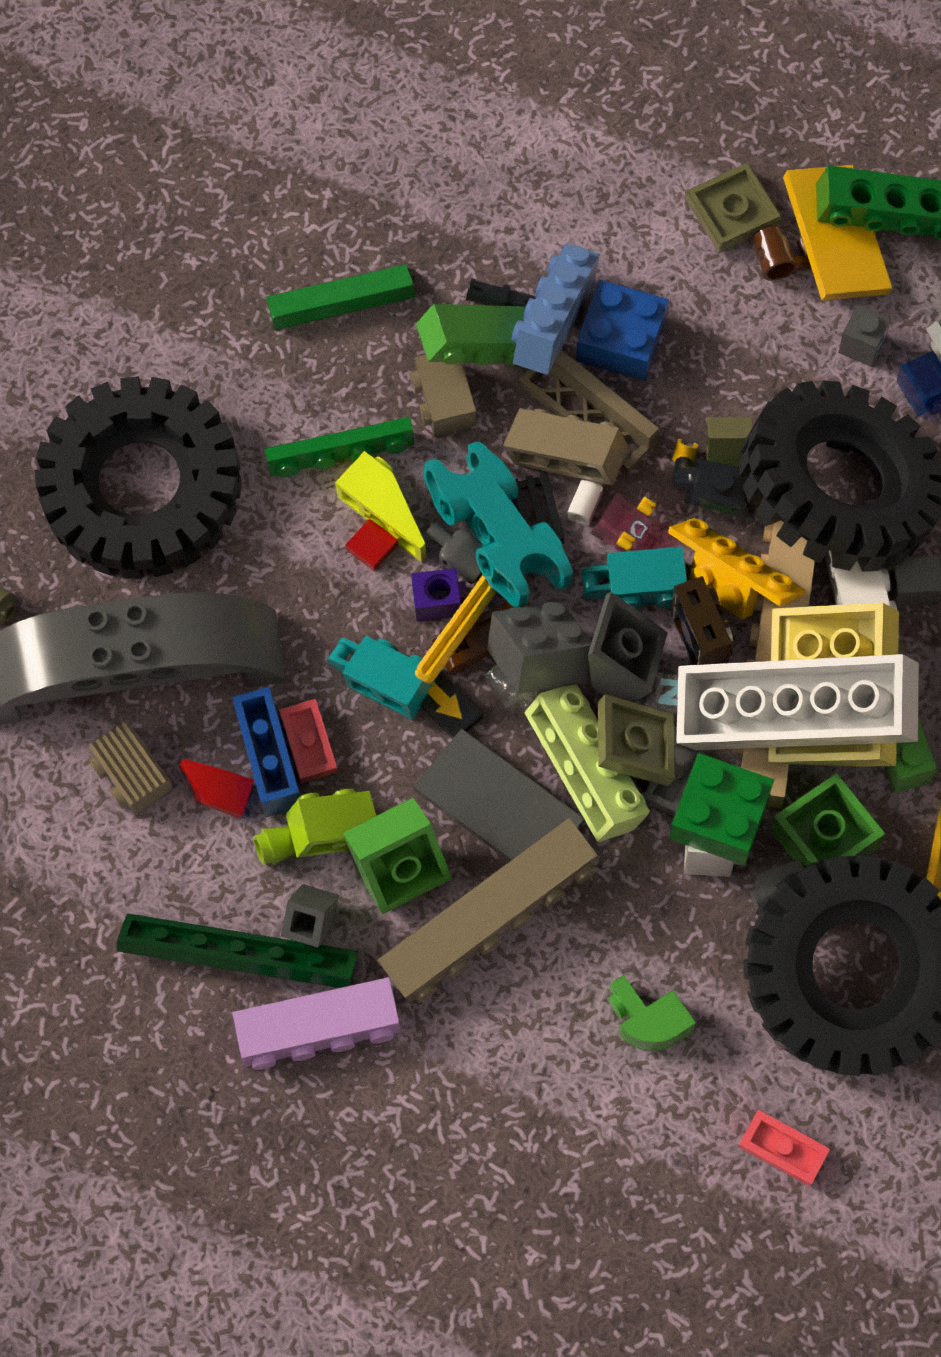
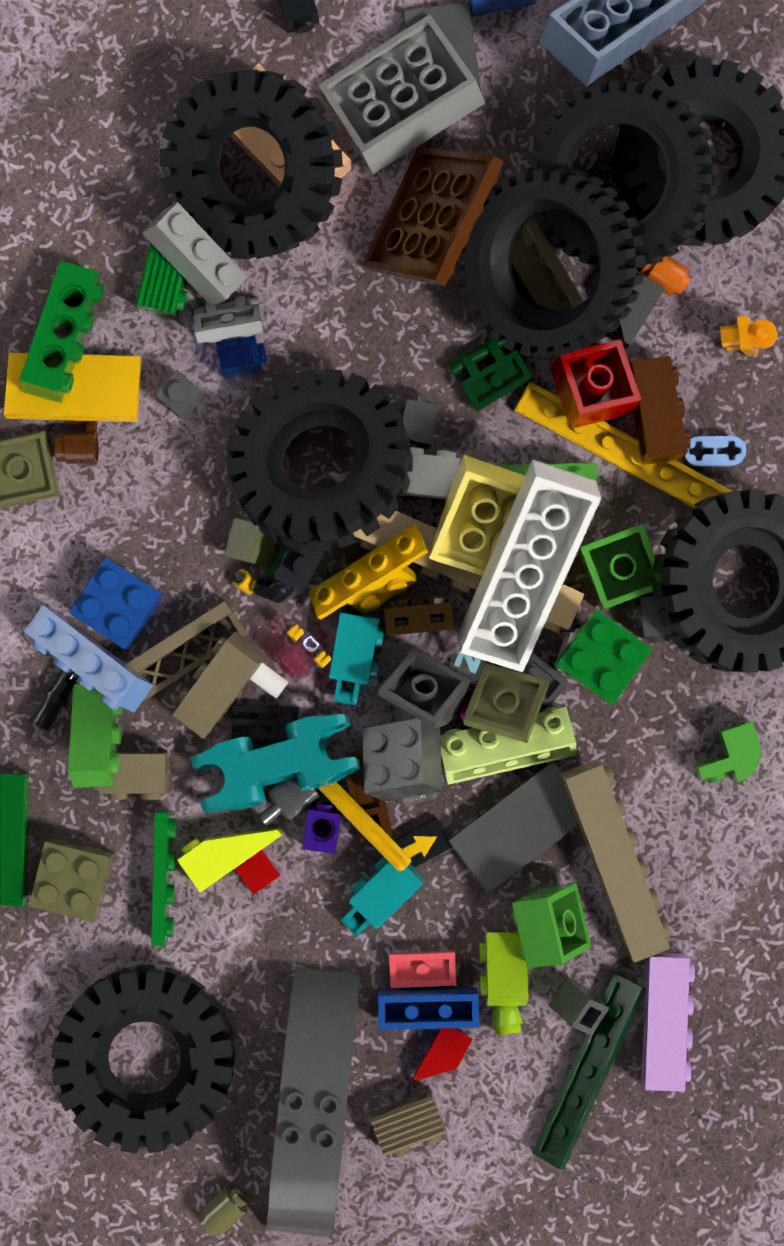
camera: 85 degrees left, 20 degrees up
(314, 359) = (71, 879): none -> olive brick

